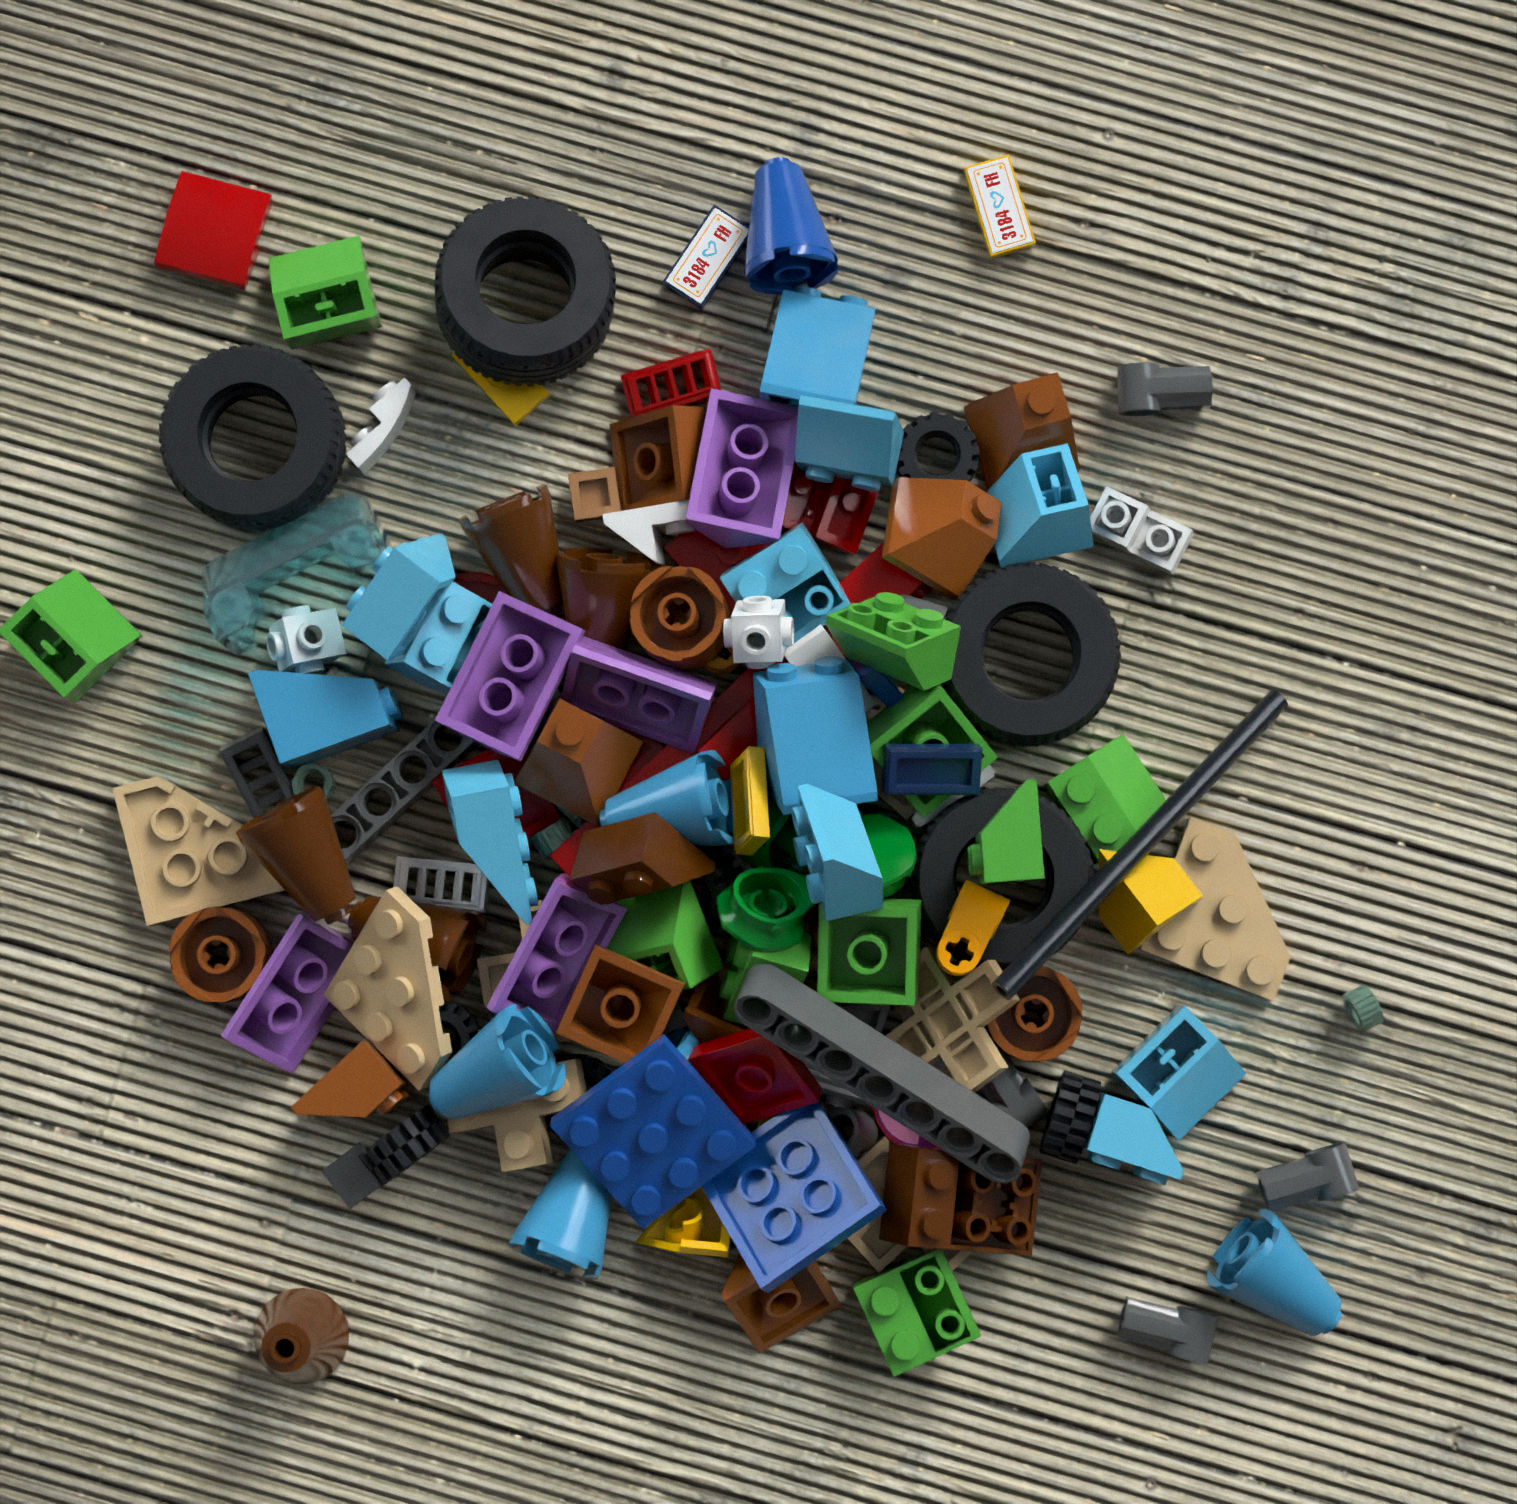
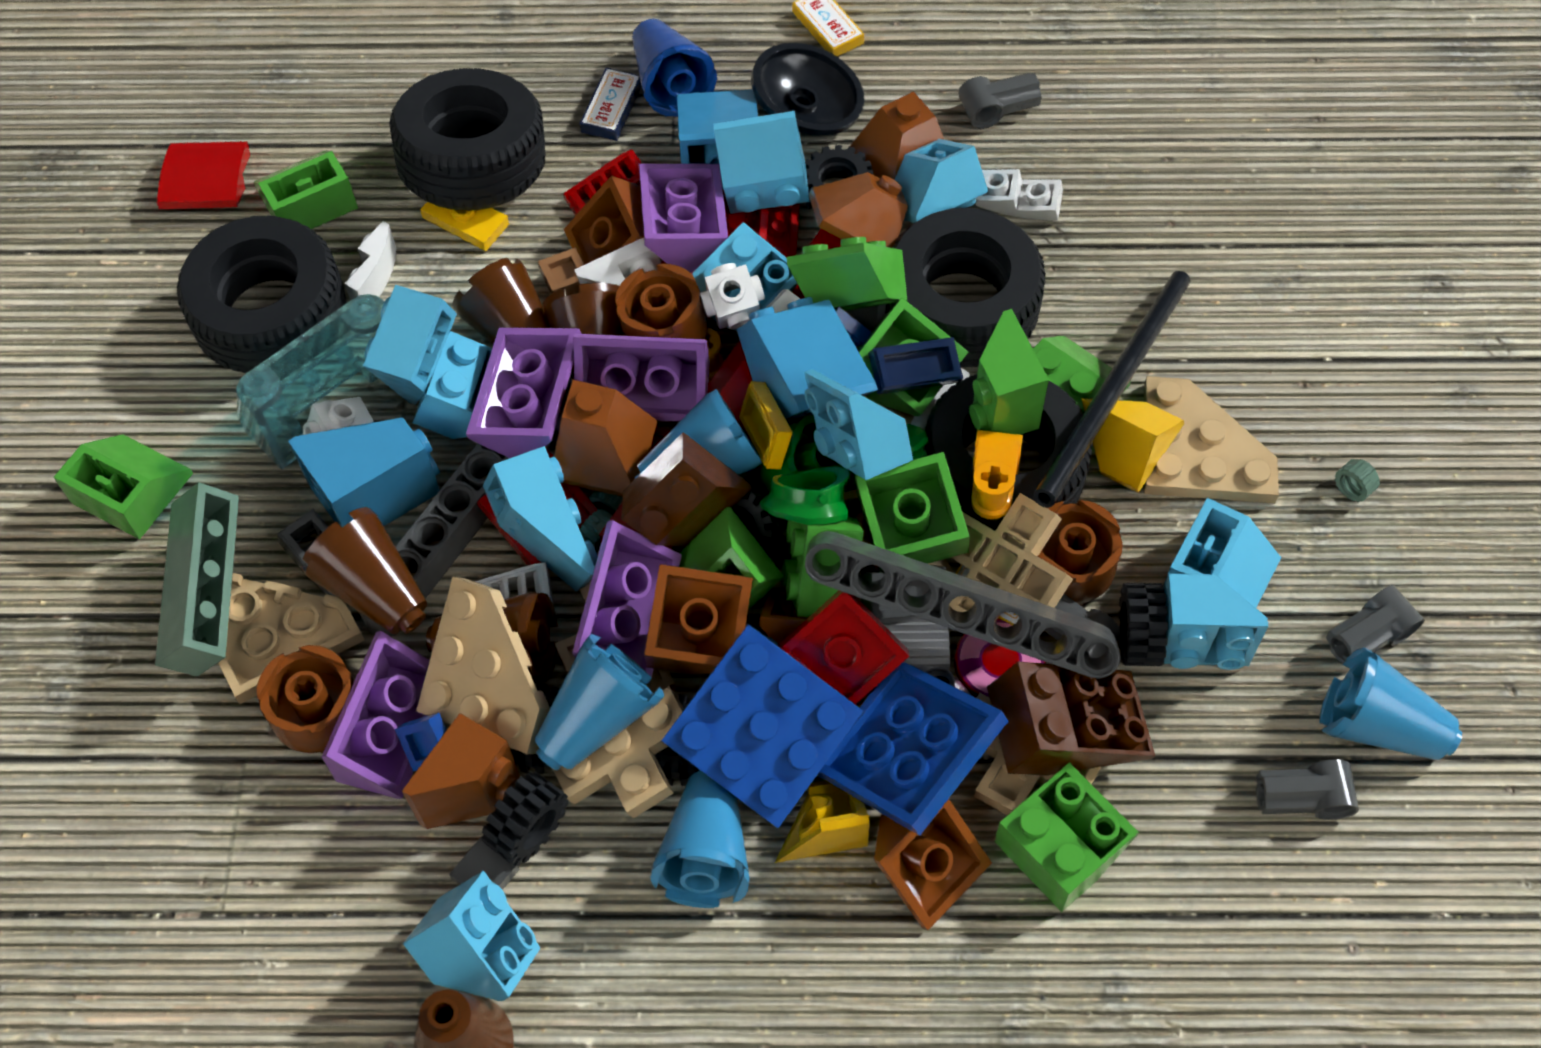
camera: 20 degrees left, 25 degrees down
(130, 797) = (197, 580): none -> sand green brick
(325, 1032) = (420, 737): none -> blue plate
(328, 1257) = (473, 941): none -> medium azure slope
(964, 319) = (812, 84): none -> black dish

